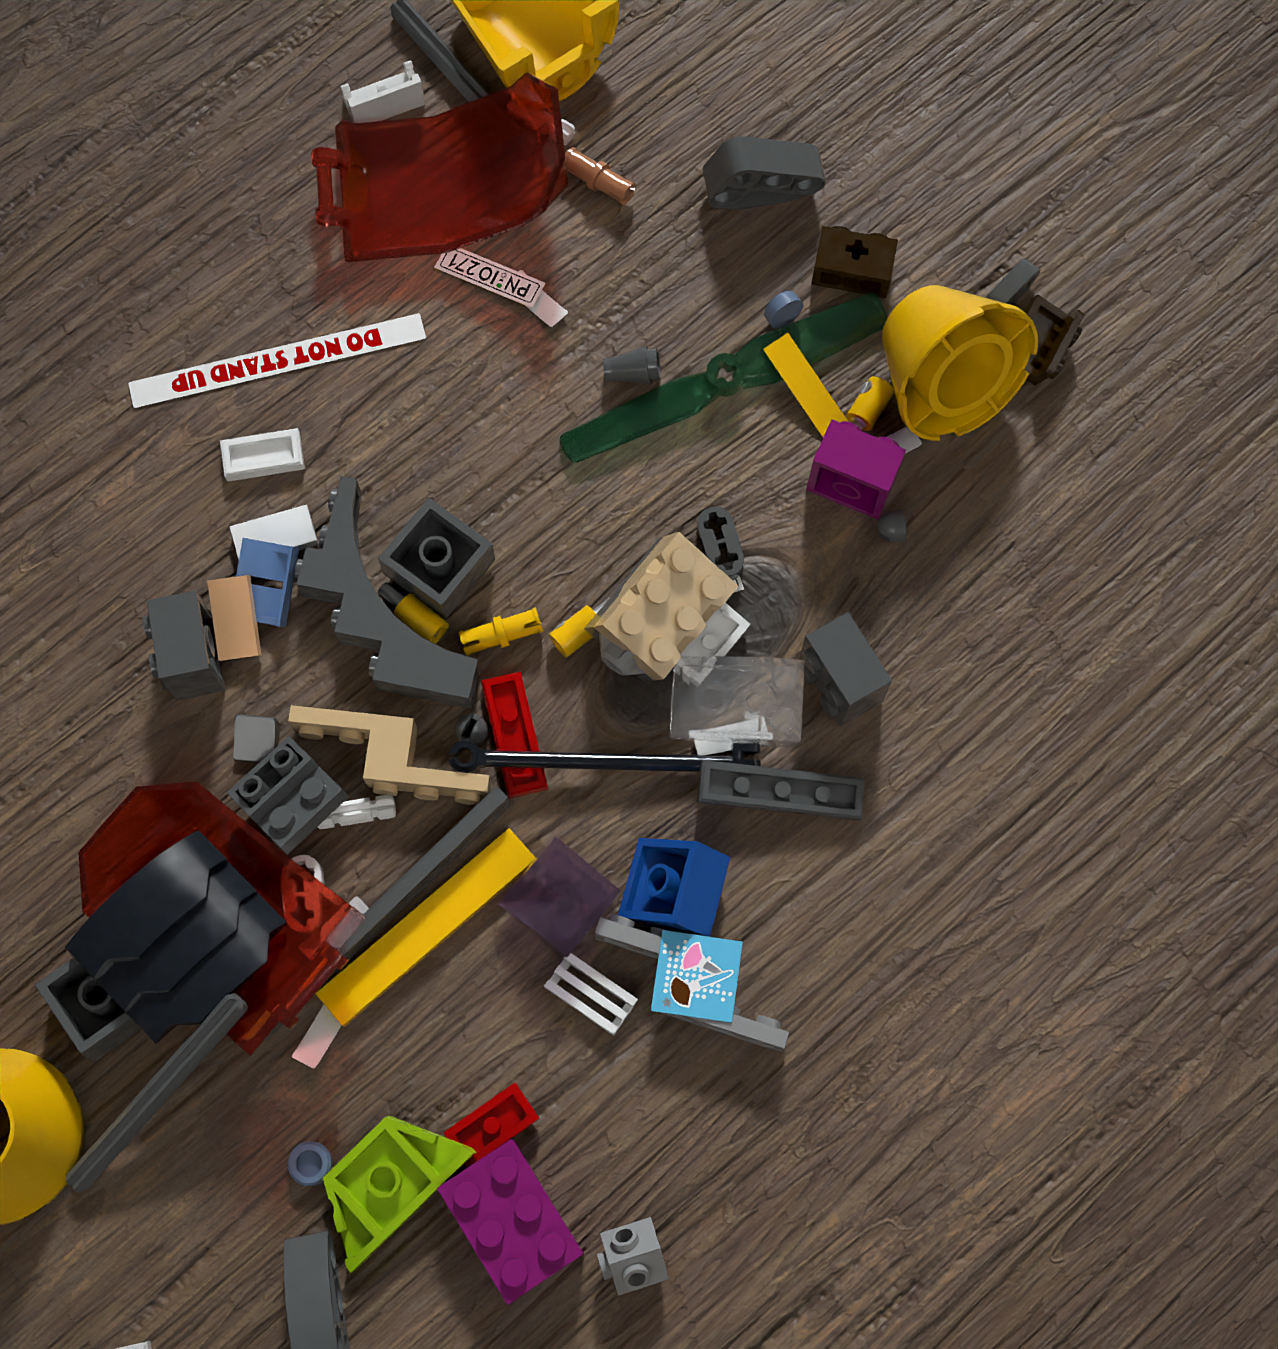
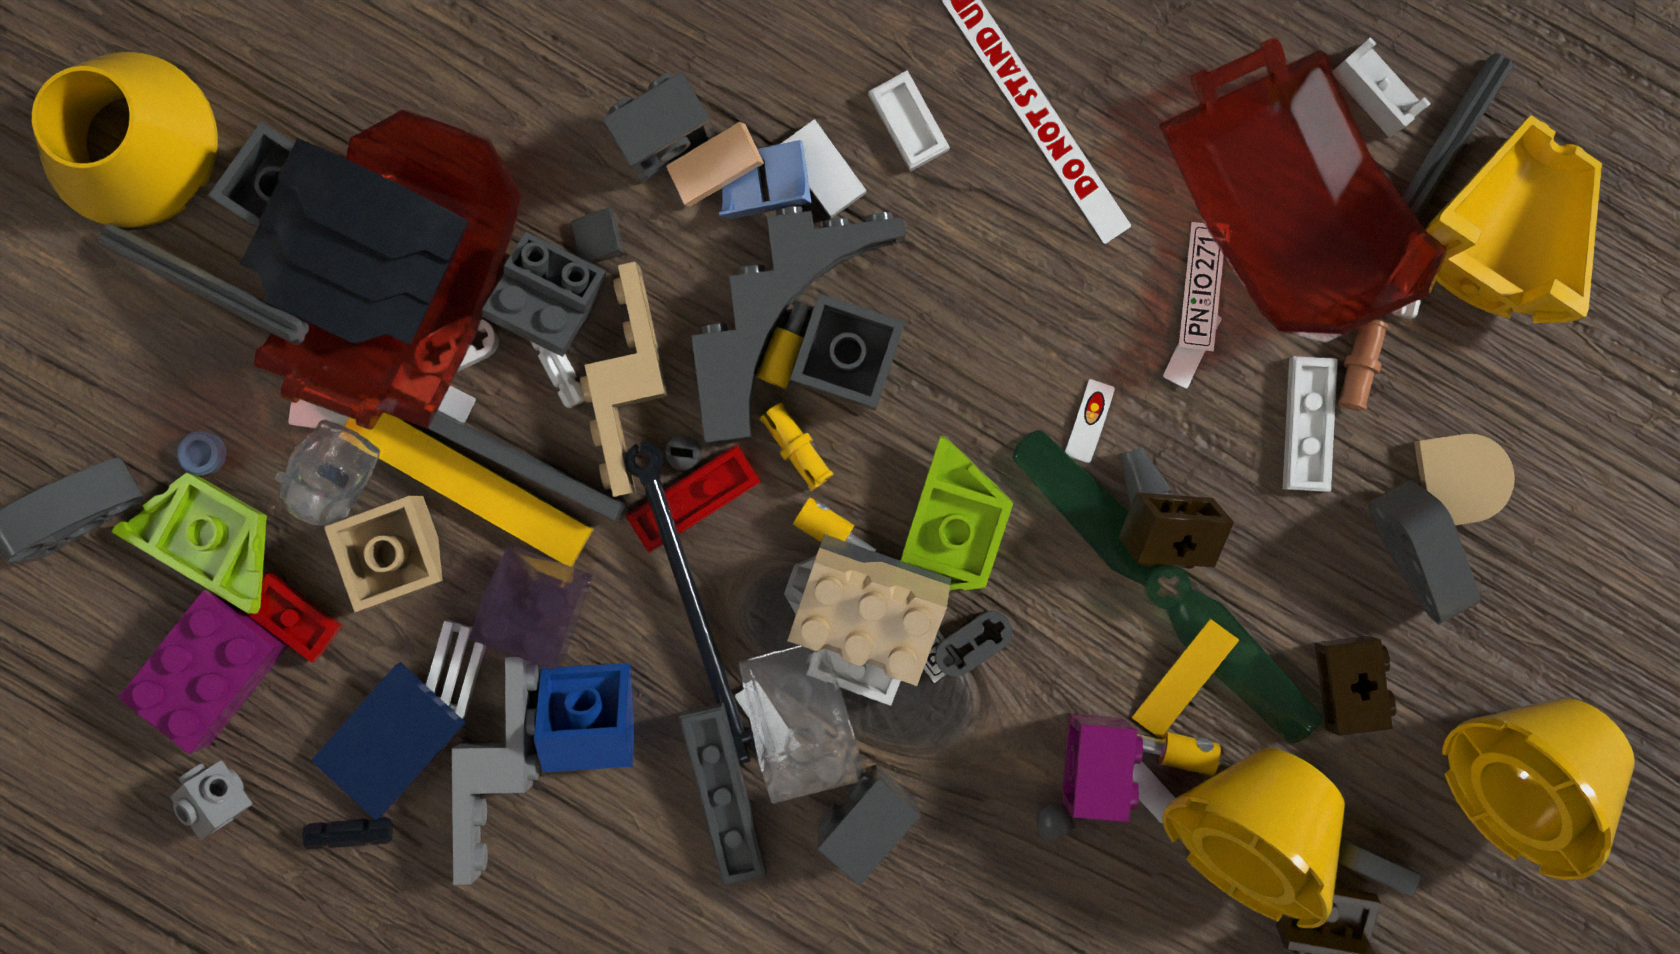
camera: 75 degrees right, 15 degrees up
(374, 1041) = (327, 474): none -> clear helmet
(464, 1009) = (386, 552): none -> tan slope
(567, 395) = (1090, 421): none -> white sticker
(610, 519) = (957, 520): none -> lime wing
(631, 231) = (1310, 424): none -> white tile
(636, 1073) = (388, 741): none -> dark blue tile
(680, 349) = (1175, 530): none -> dark brown brick
(696, 976) = (495, 774): medium azure sticker -> none
(708, 125) = (1466, 474): none -> tan tile
(708, 1143) = (347, 833): none -> black axle
(783, 309) = (1268, 624): sand blue tile -> none
(976, 145) = (1543, 783): none -> yellow cone

